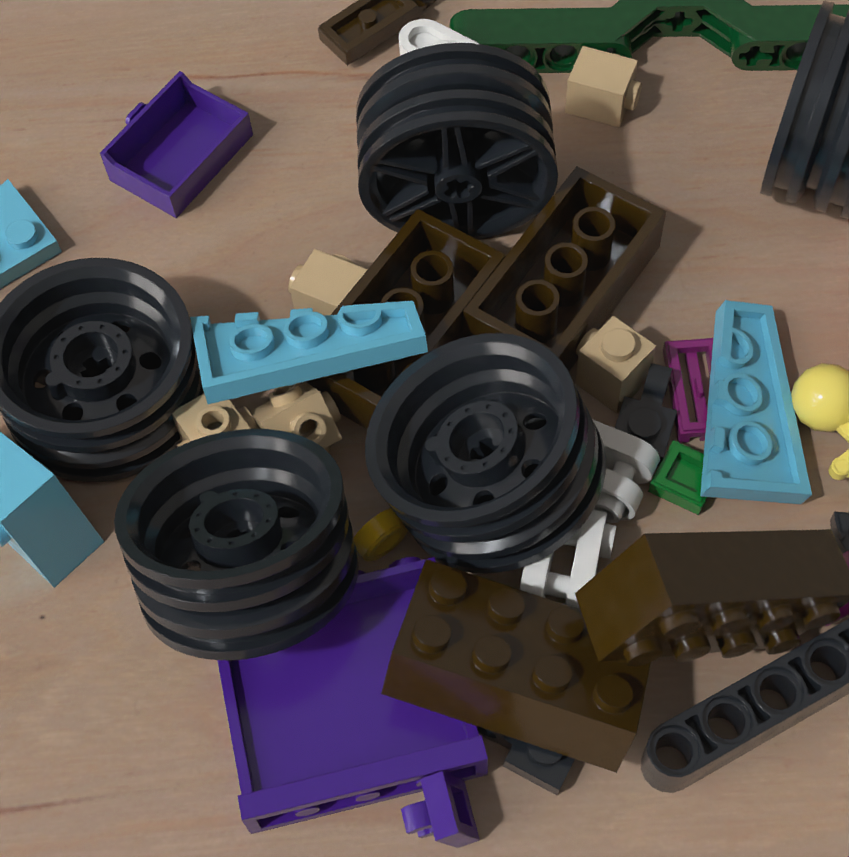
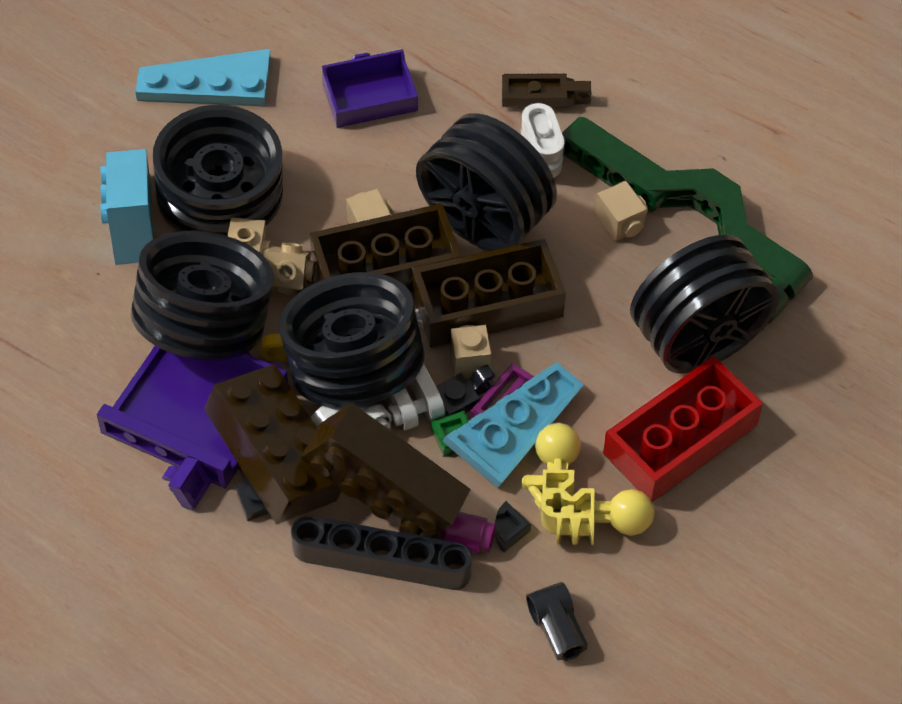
camera: 35 degrees right, 5 degrees down
(277, 353) = (302, 223): medium azure wing -> none

